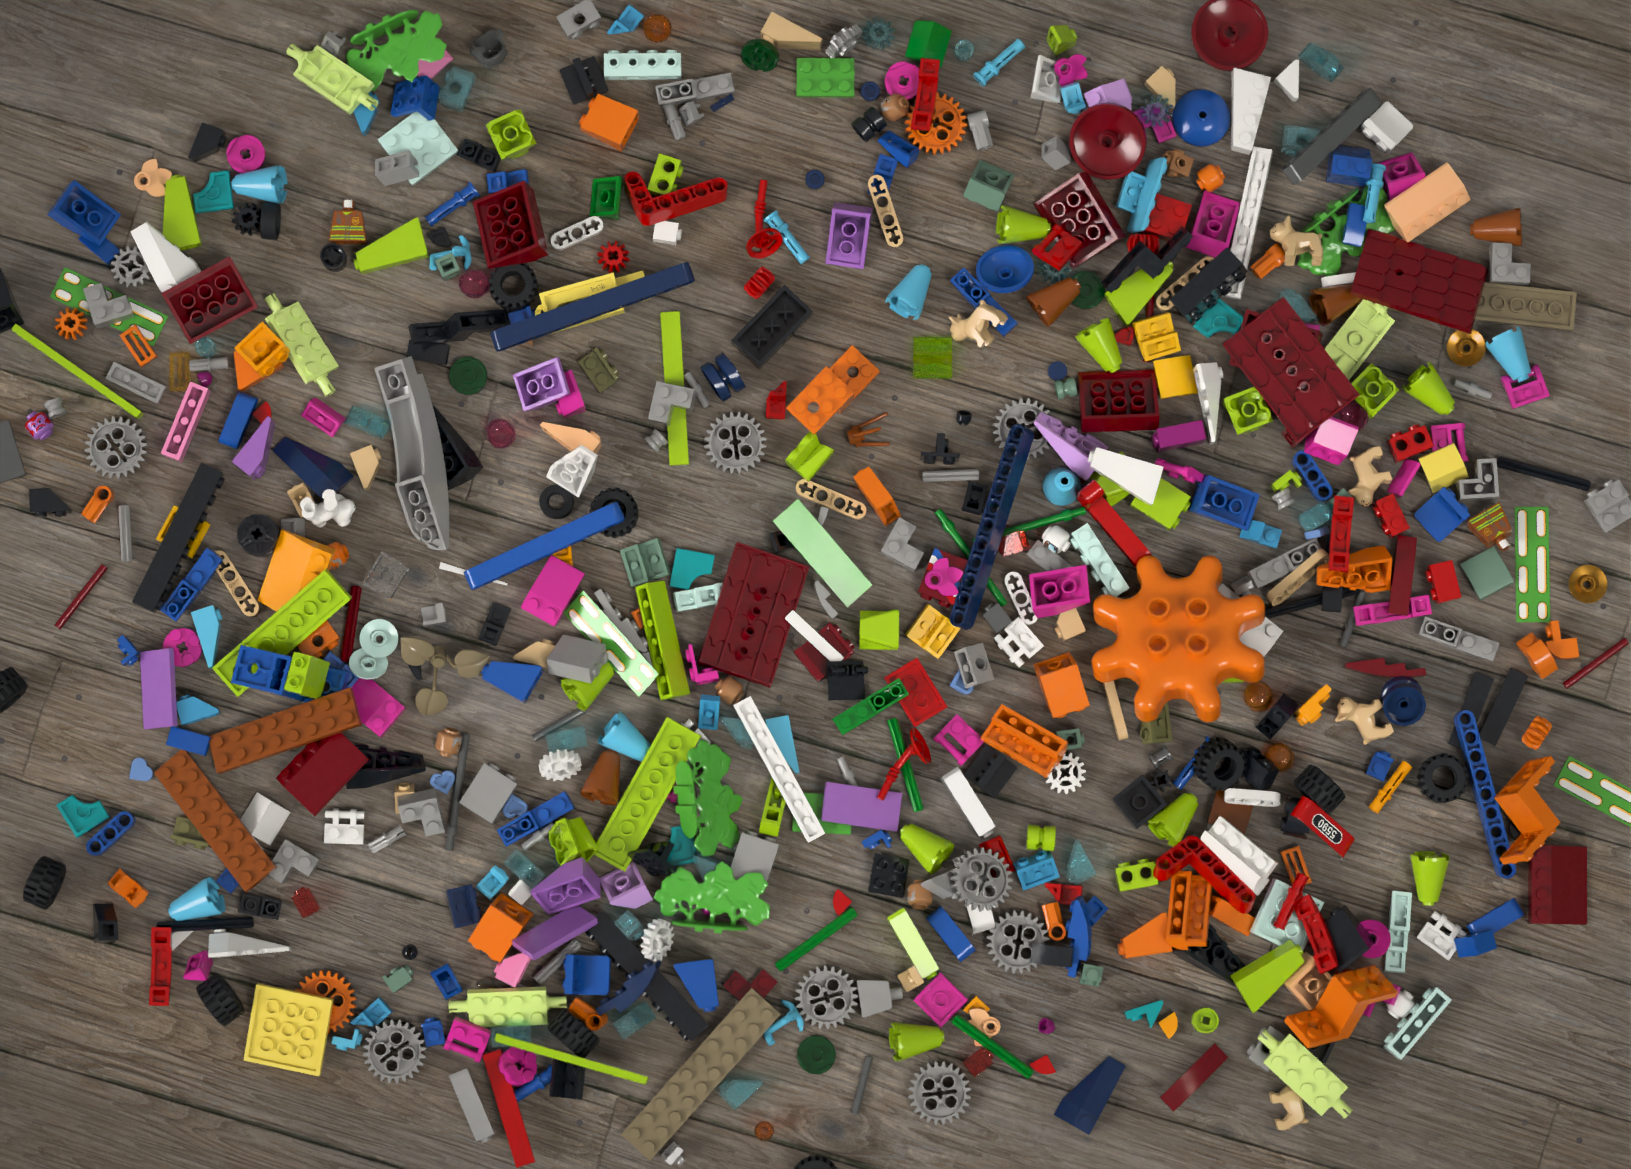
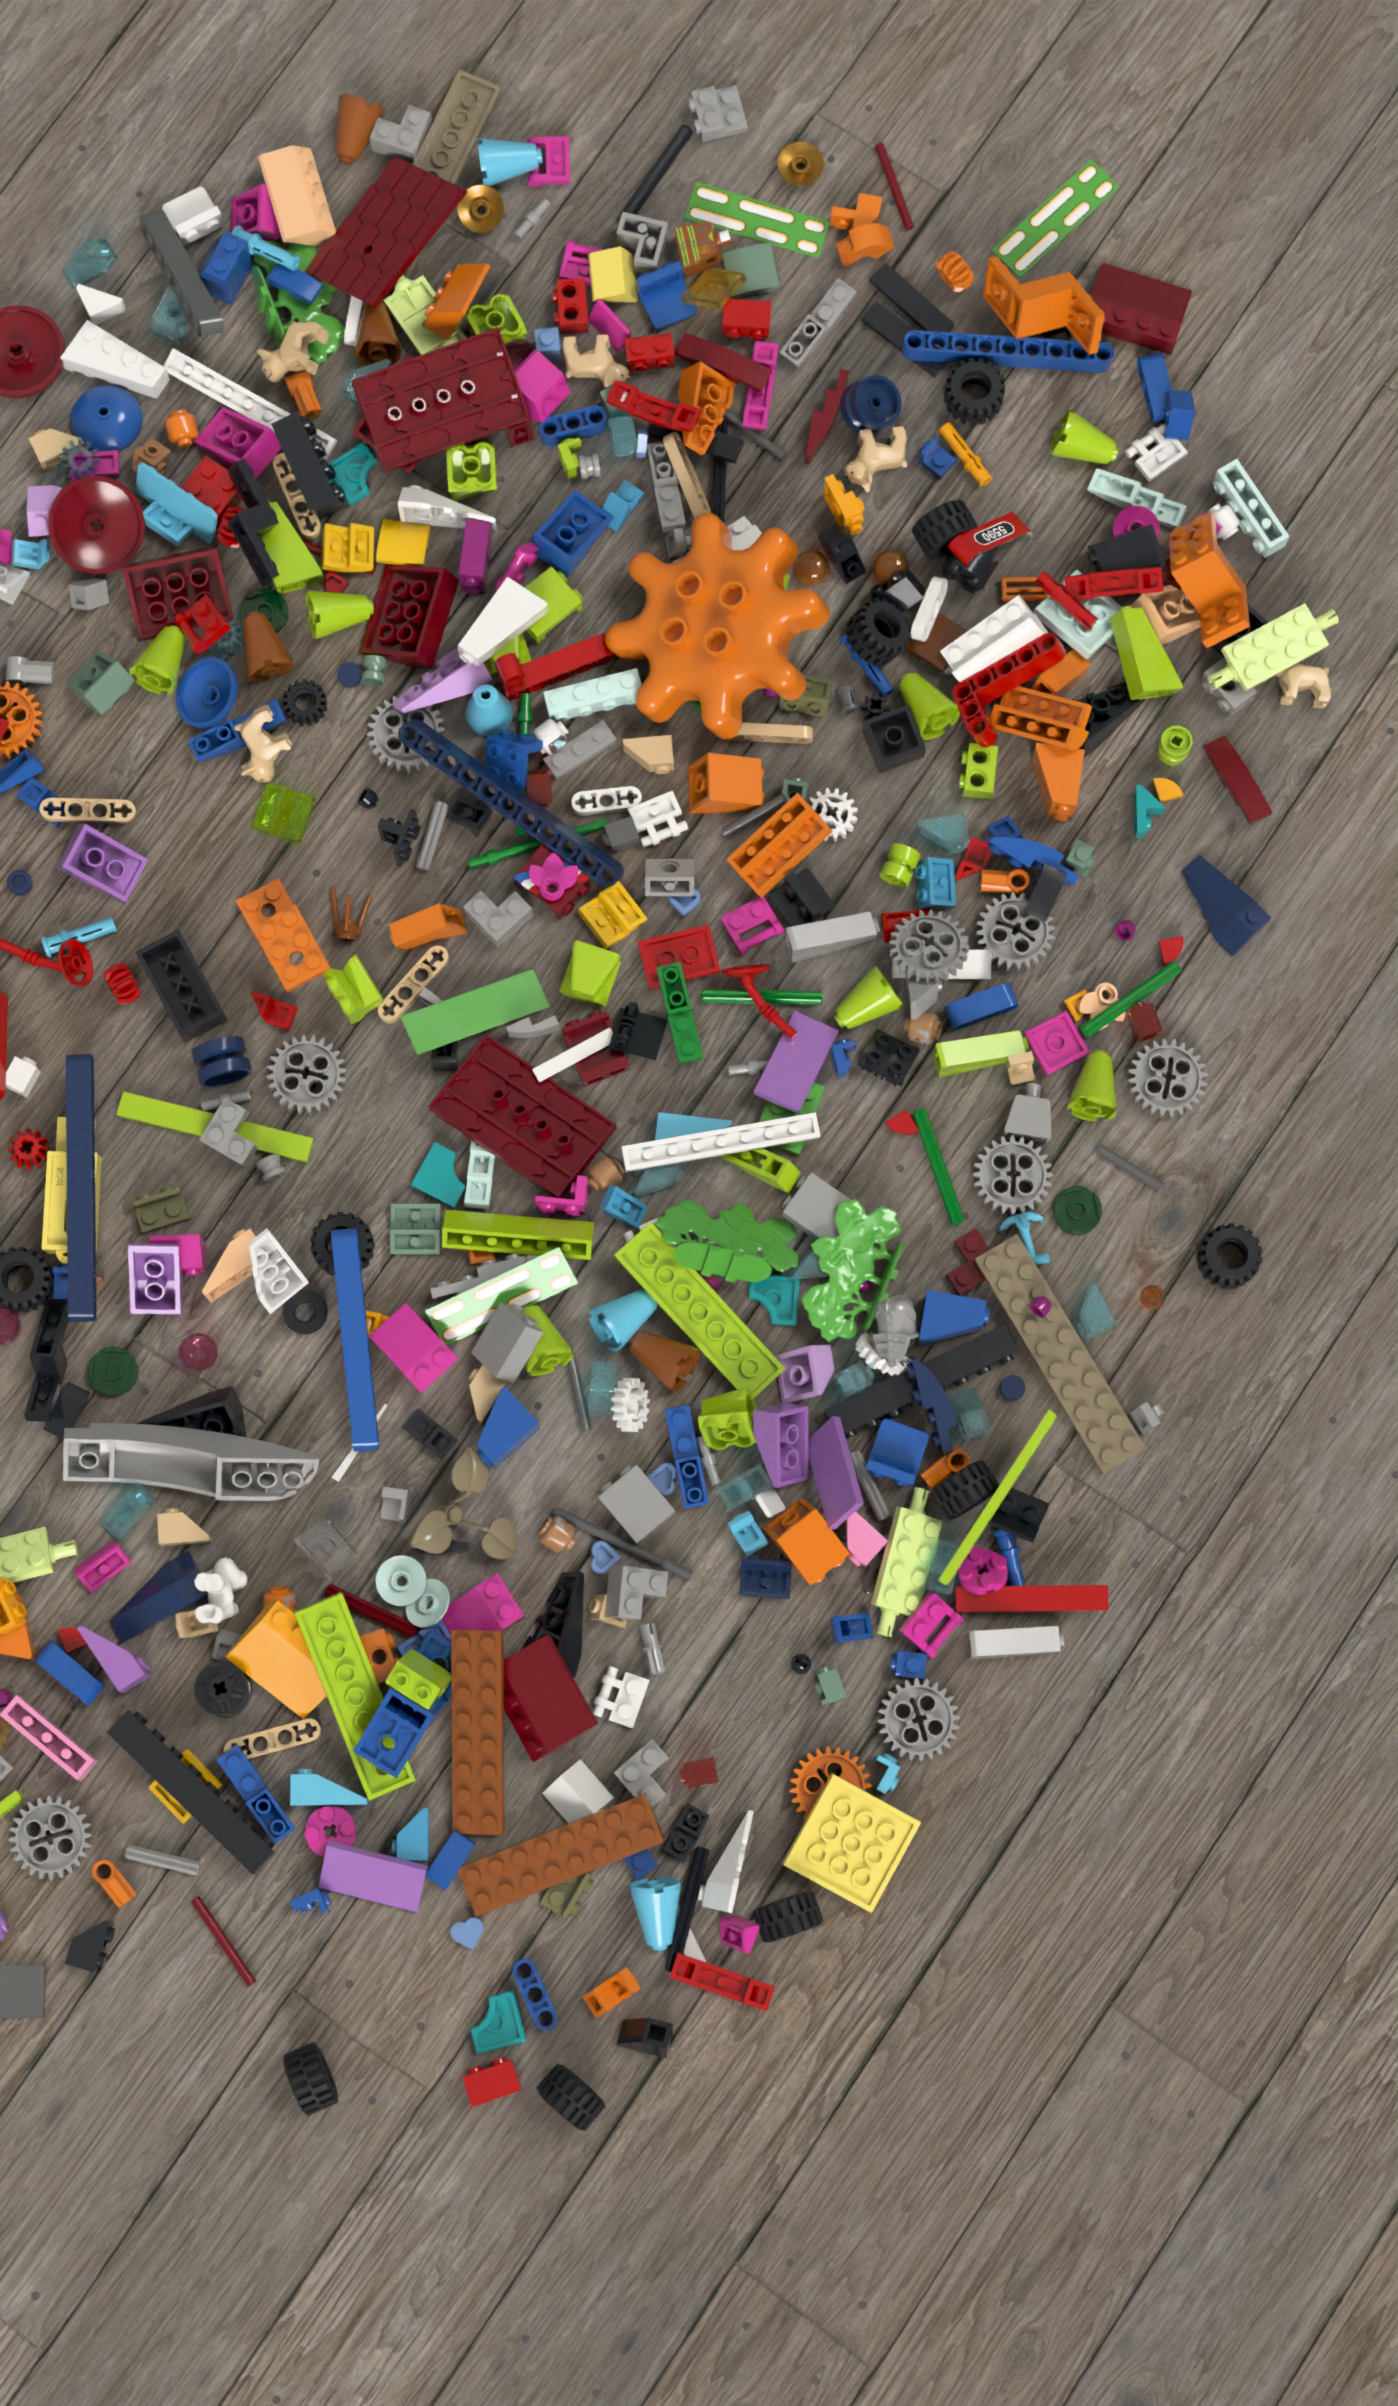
camera: 70 degrees left, 5 degrees down
(39, 822) = (491, 2082): none -> red brick
(373, 1014) = (863, 1732): dark azure slope -> none
(654, 858) = (781, 1324): black bracket -> none
(664, 1046) = (1012, 1388): none -> dark blue tile
(676, 944) = (895, 1327): none -> light grey helmet
(729, 1048) = (1040, 1306): none -> magenta hinge
(910, 293) = (197, 811): medium azure cone -> none
(1023, 333) = (296, 691): none -> black tyre
(1029, 512) = (509, 756): none -> blue bracket
(1043, 714) = (754, 815): none -> dark grey bar
(1059, 590) = (613, 747): dark pink slope -> none
(1371, 435) = (548, 343): none -> medium blue brick
(1381, 352) = (454, 298): none -> orange slope
(1430, 389) = (516, 263): lime cone -> none
(1459, 549) = (713, 288): none -> clear yellow tile

